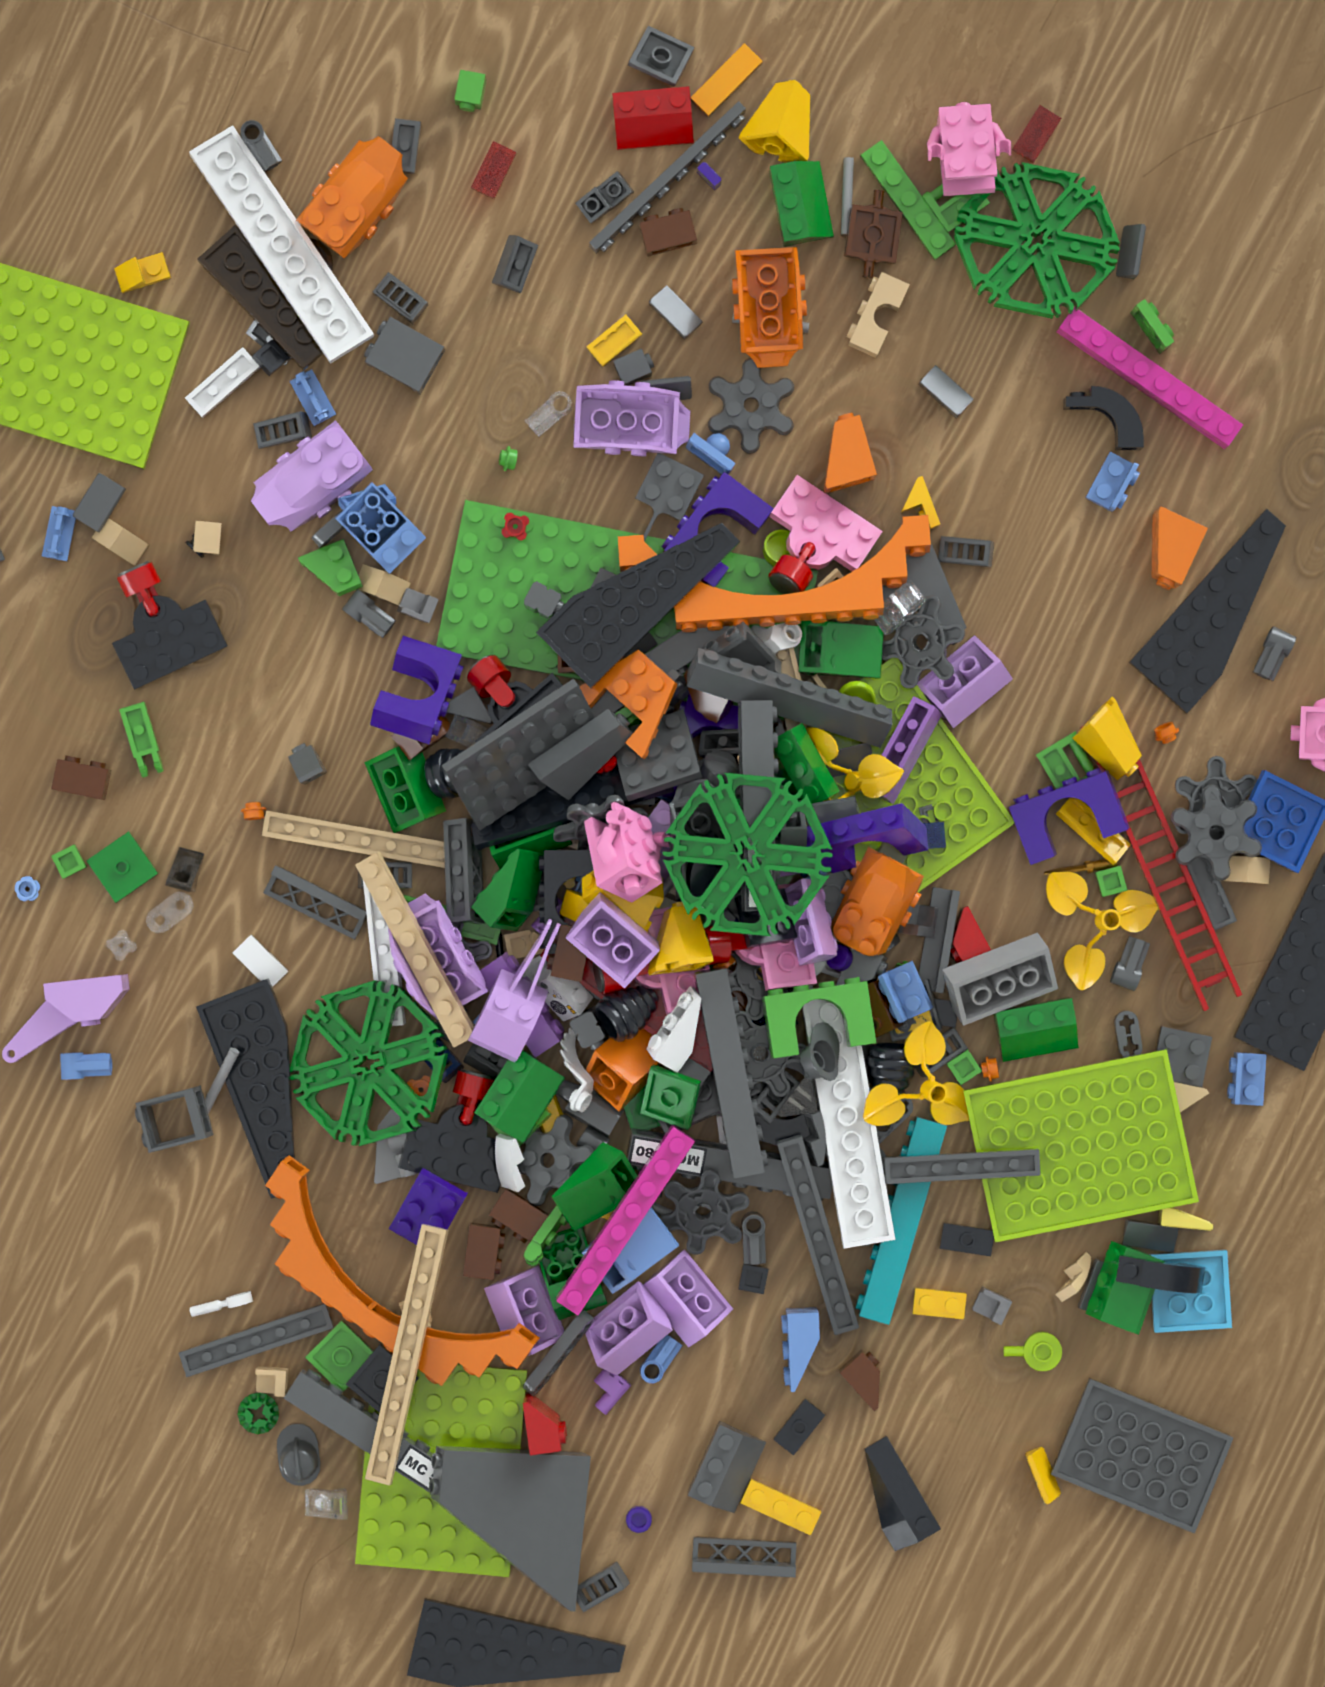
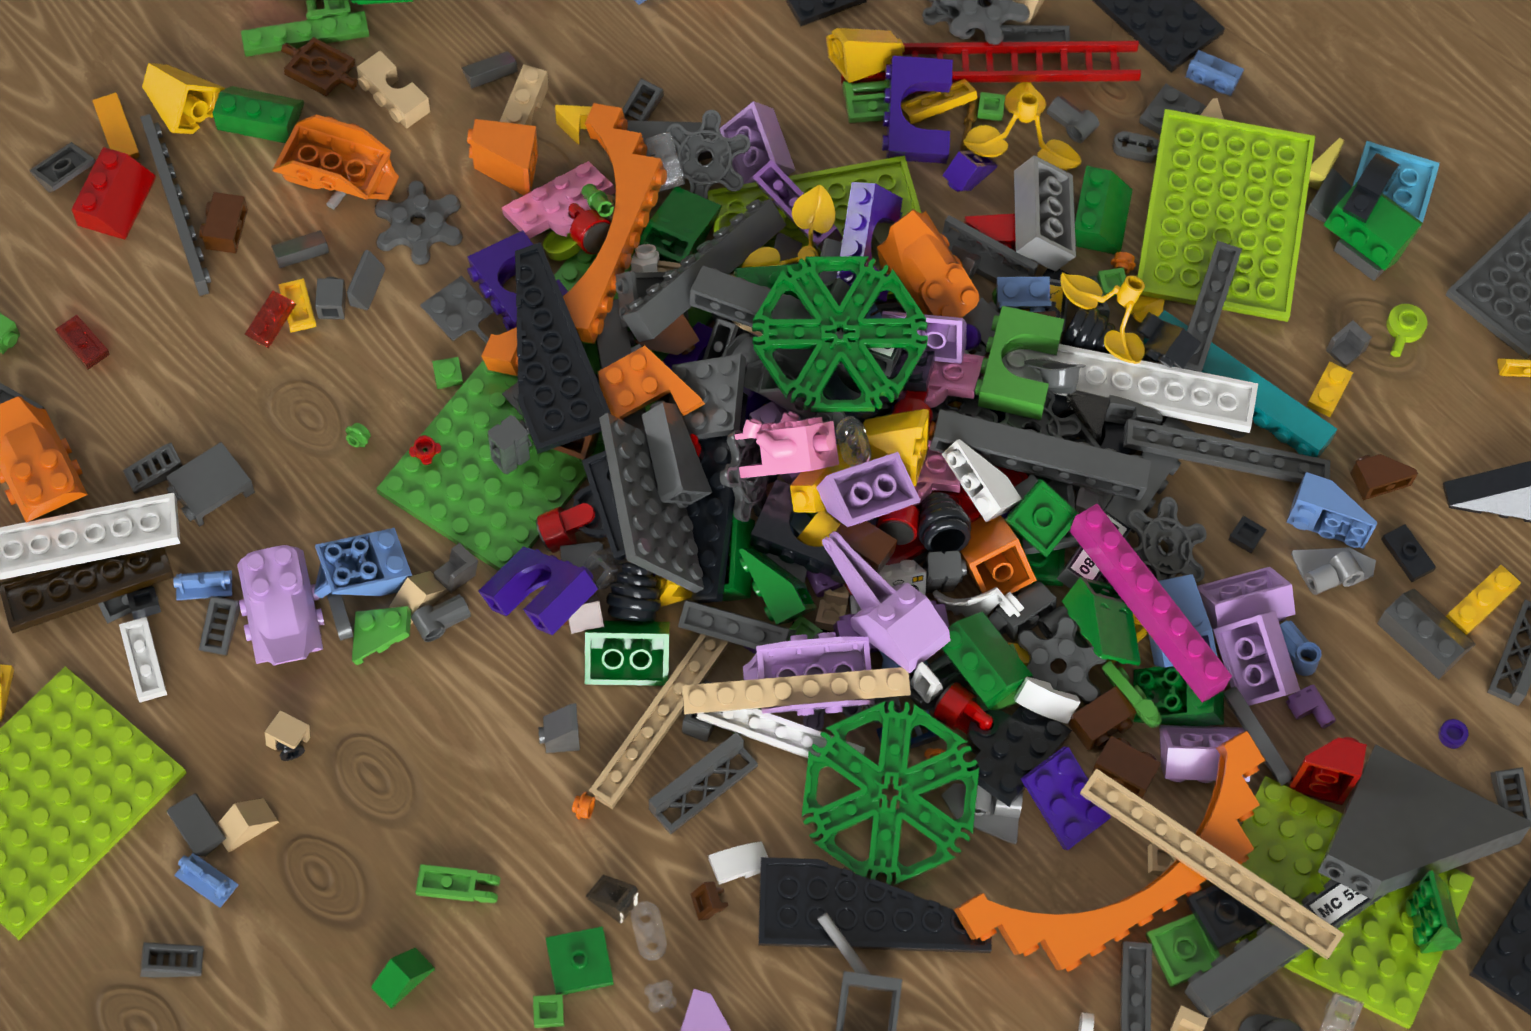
camera: 70 degrees left, 25 degrees down
(49, 731) = (401, 976): none -> green slope
(80, 778) = (468, 960): reddish brown brick -> none
(164, 633) = (361, 817): black plate -> none
(214, 949) = (707, 900): none -> reddish brown tile
(447, 1555) = (1433, 915): none -> green slope
(477, 1059) = (926, 683): none -> white slope
(515, 263) = (178, 361): dark grey slope -> none
(547, 415) = (334, 383): clear piece -> none
(587, 325) = (270, 319): none -> clear red plate
(604, 197) = (161, 262): dark grey slope -> none
(607, 506) = (447, 372): none -> bright green plate
(629, 419) = (372, 317): lavender slope -> none
(659, 905) = (853, 444): none -> clear plate
(709, 175) = (192, 171): dark purple tile -> none
(712, 451) = (444, 265): medium blue tile -> none
(753, 1241) = (1211, 518): dark grey piece -> none
(755, 1365) = (1332, 567): none -> light grey panel
(822, 566) = (597, 200): none -> bright green pin
(847, 191) = (274, 77): light grey bar -> none
(900, 1143) = (1167, 342): none -> black hinge
(914, 443) = (526, 95): none -> tan arch
(966, 1239) = (1277, 343): black plate -> none
(1025, 888) = (968, 170): none -> dark purple slope
(1077, 1273) = (1348, 267): tan slope -> none
(1166, 732) = (877, 17): orange plate -> none

